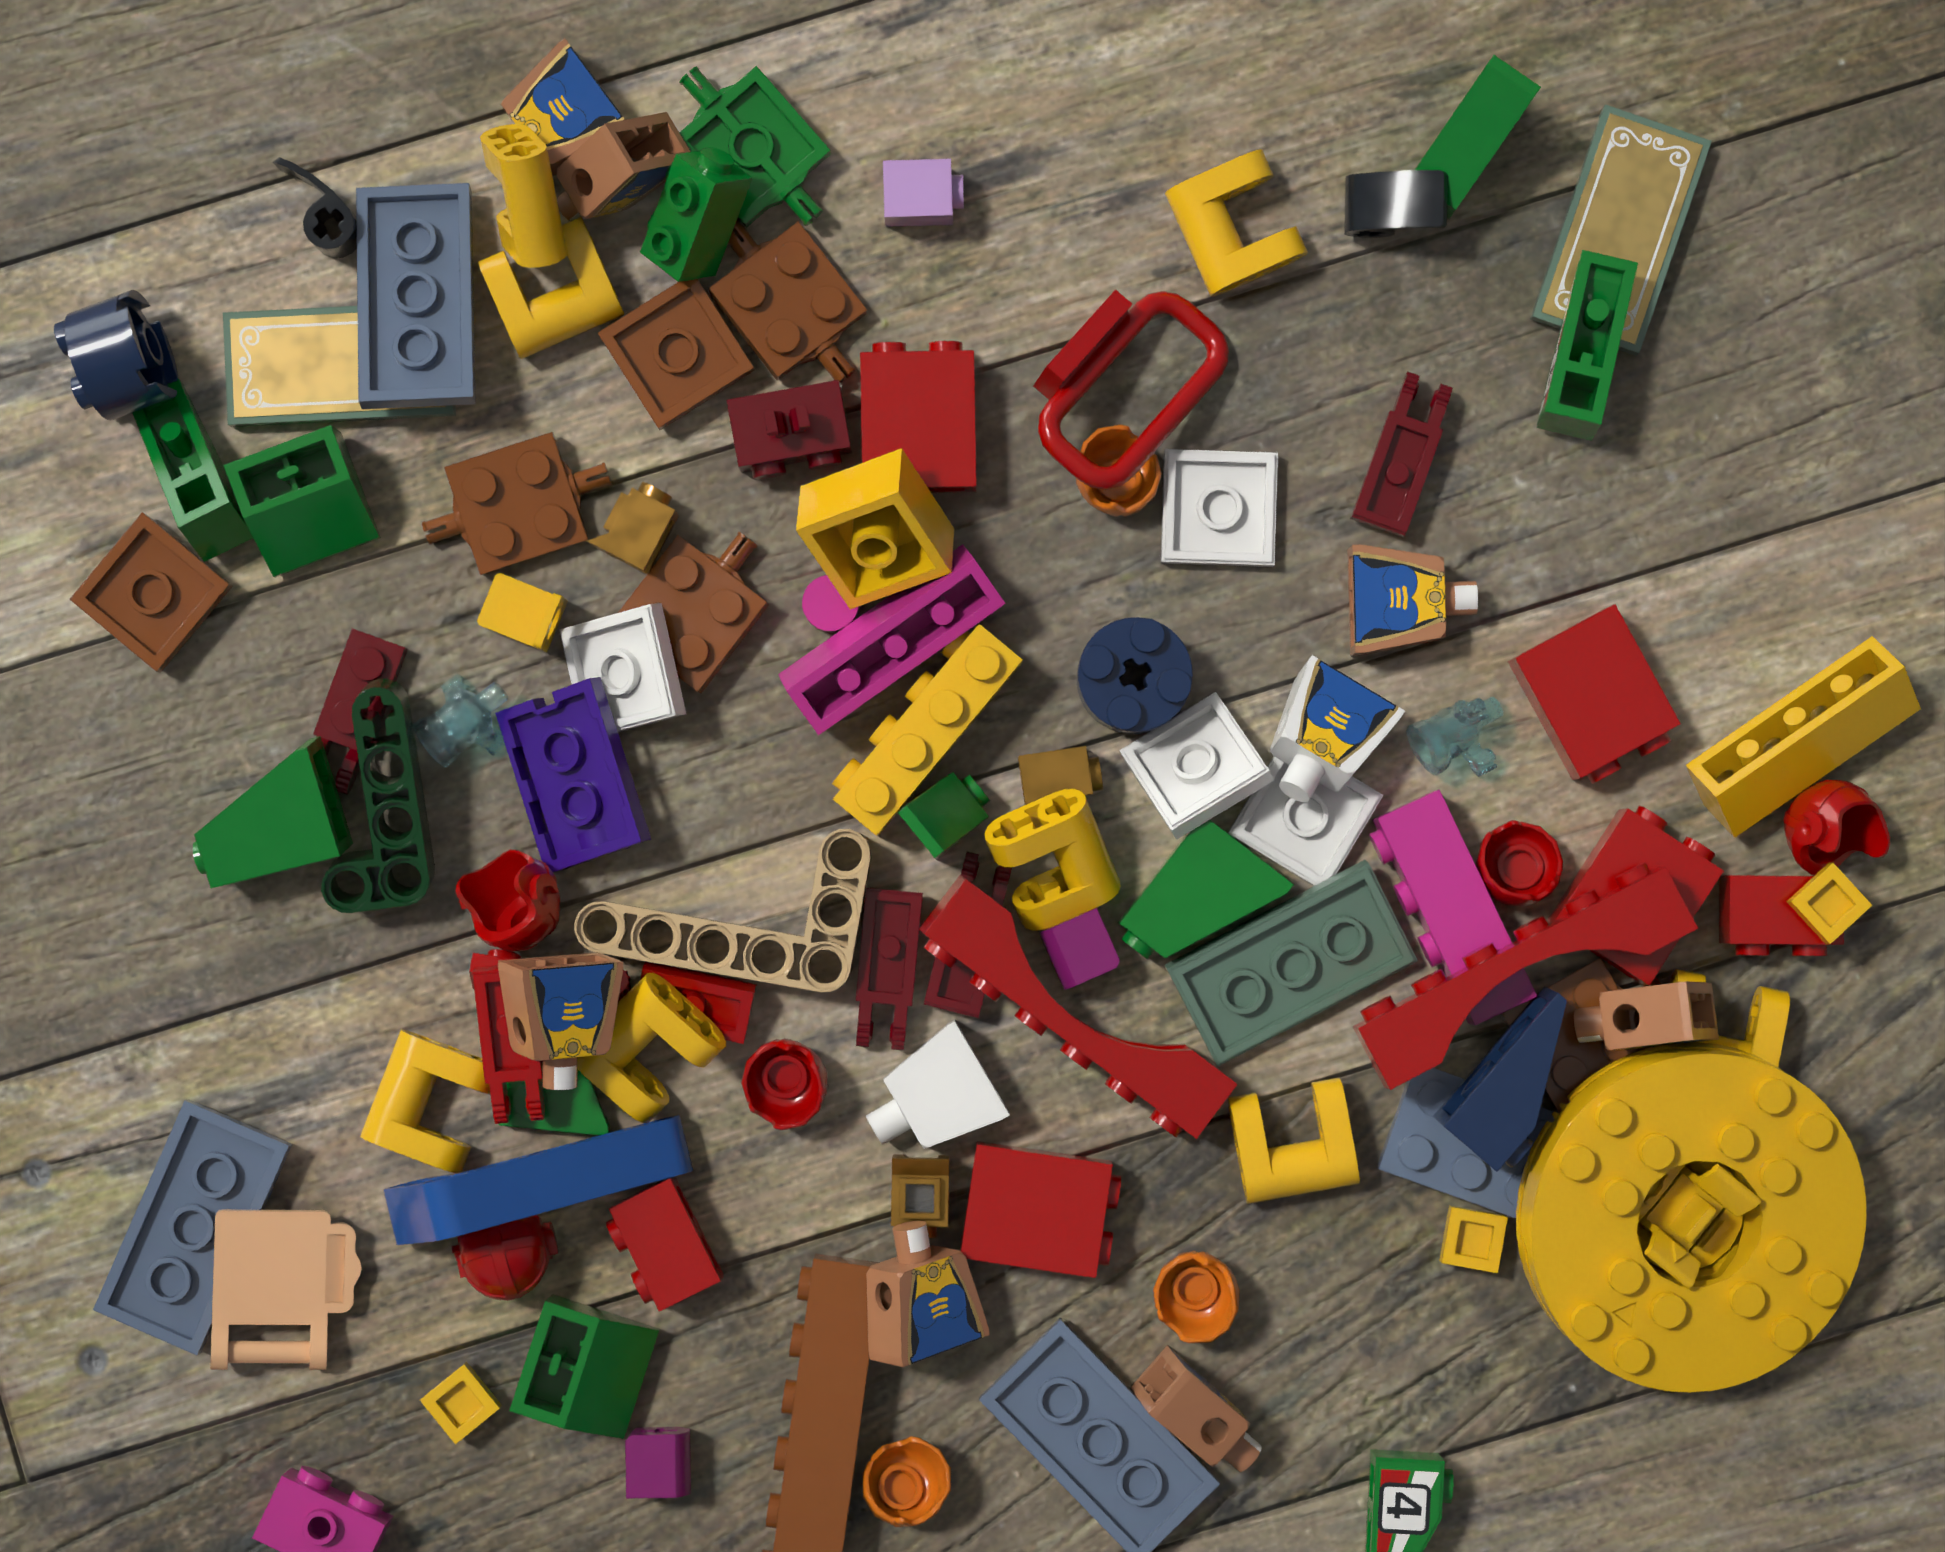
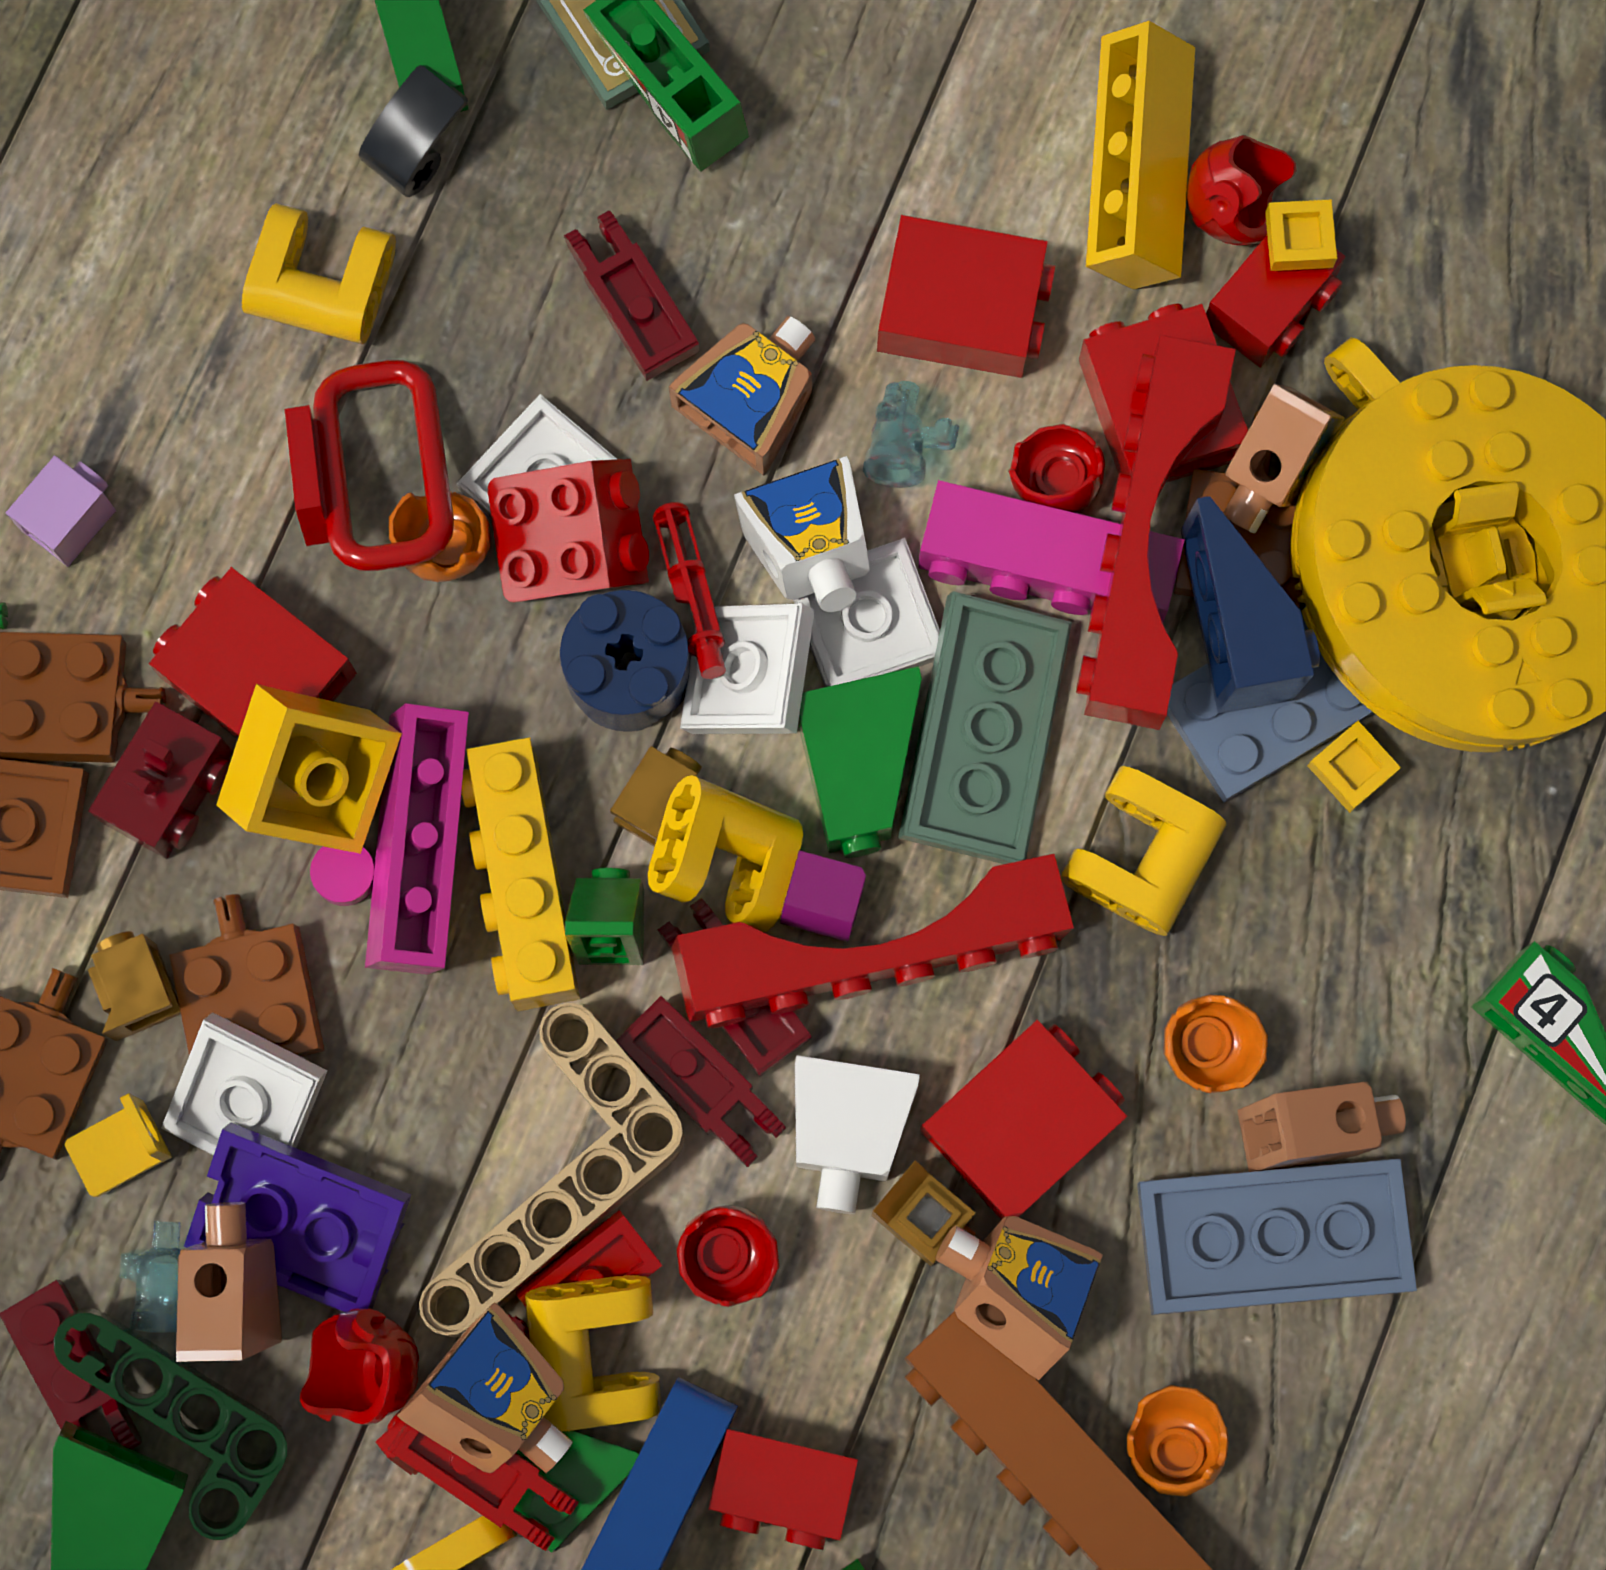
camera: 50 degrees left, 10 degrees down
(487, 773) = (227, 1291): none -> nougat torso
(1193, 559) = (568, 529): none -> red bracket
(1223, 679) = (692, 588): none -> red piece

